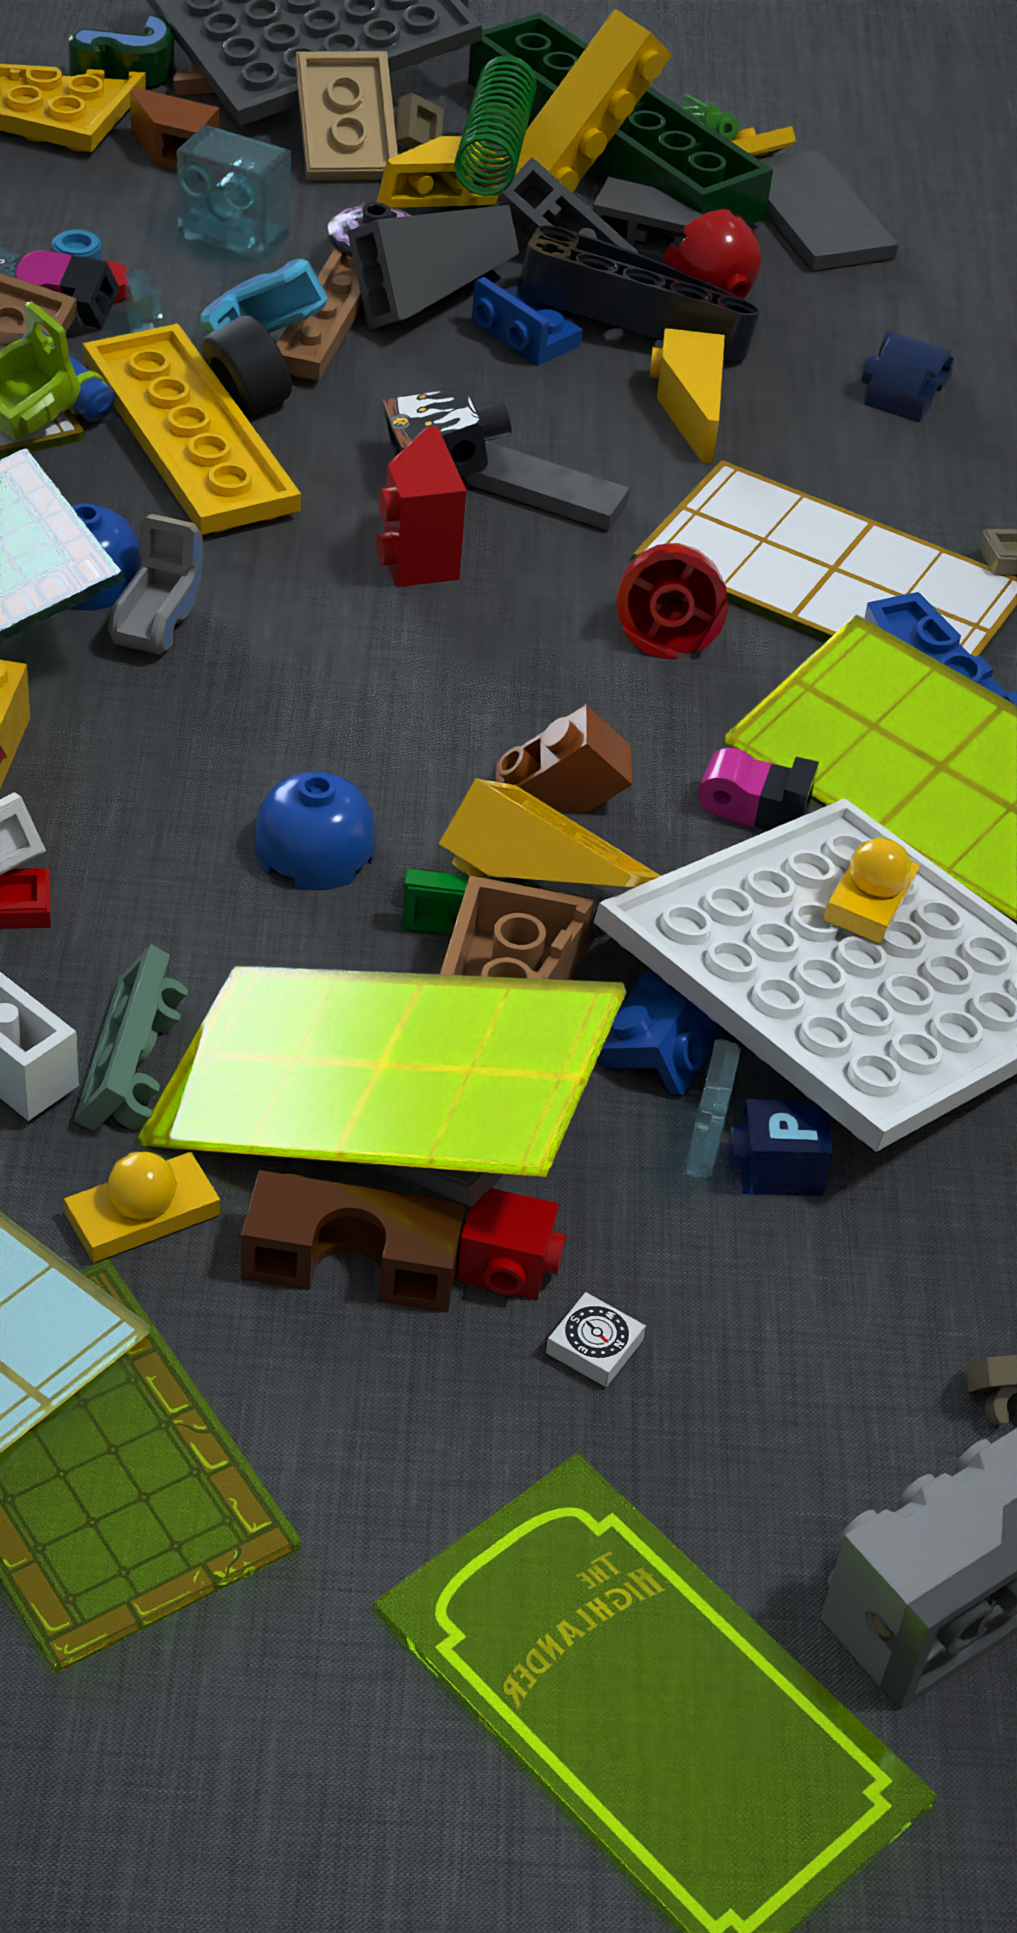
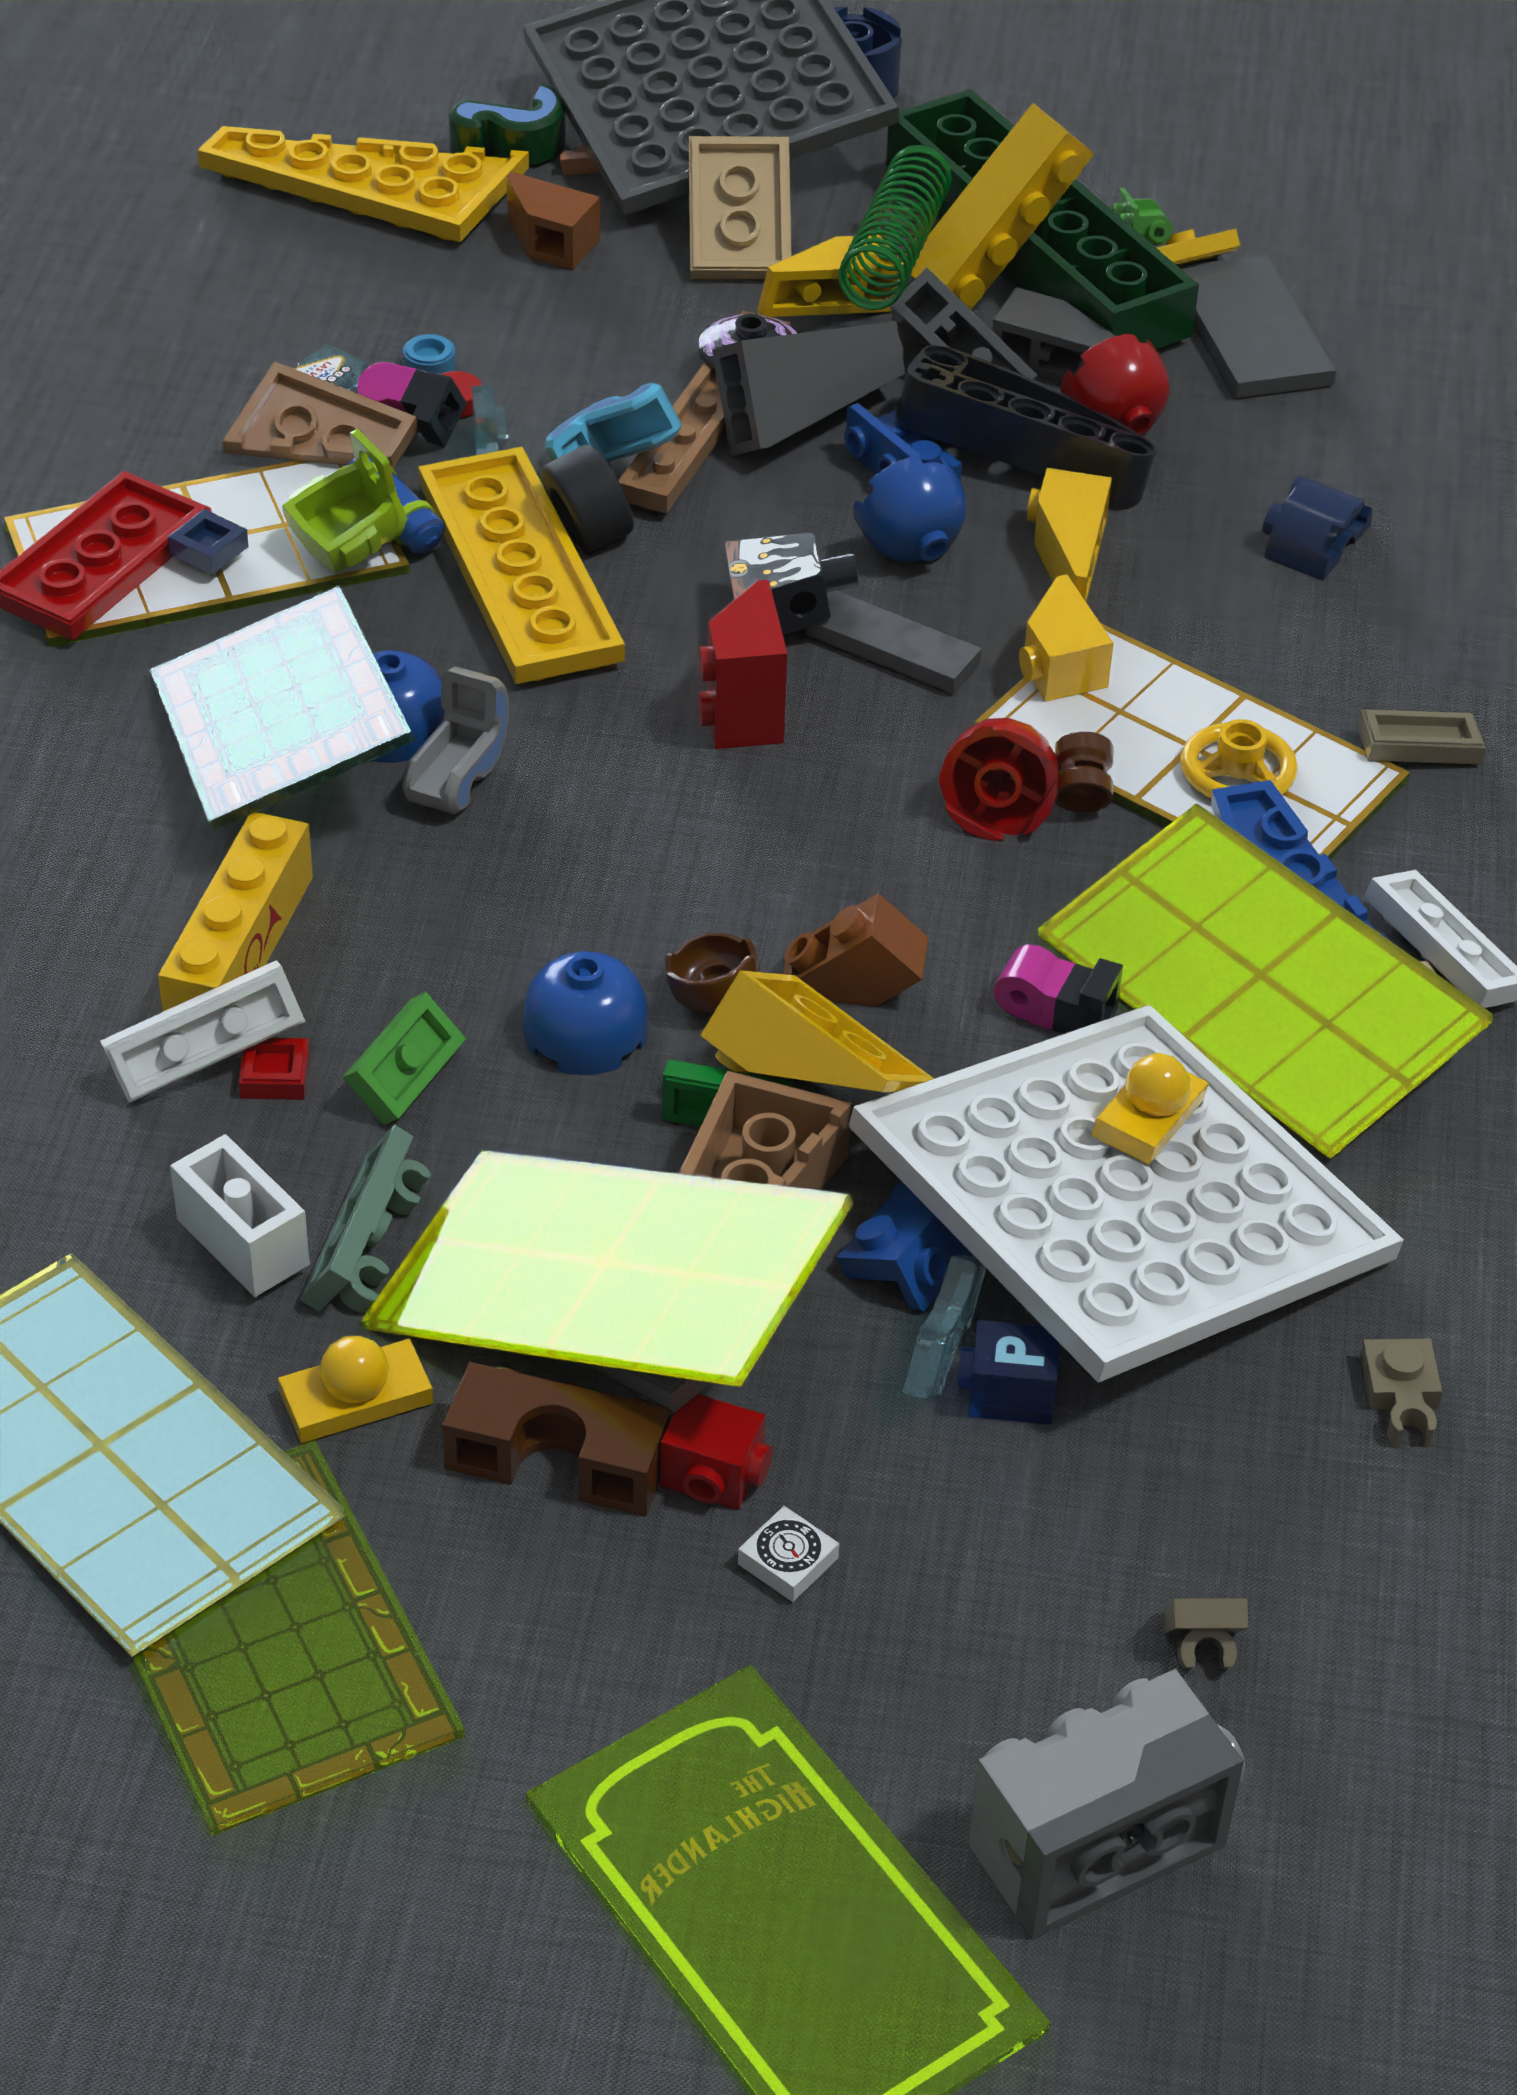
camera: 10 degrees right, 0 degrees up
(146, 882) = (404, 1058): none -> bright green plate
(233, 193) = (600, 298): clear light blue brick -> none
(417, 121) = (817, 215): dark tan tile -> none
(430, 787) = (706, 968): none -> reddish brown hair
(549, 368) = (913, 510): none -> blue cylinder
(709, 481) = (1065, 645): none -> yellow slope
(747, 594) = (1083, 770): none -> reddish brown wheel
(882, 573) = (1238, 756): none -> yellow piece

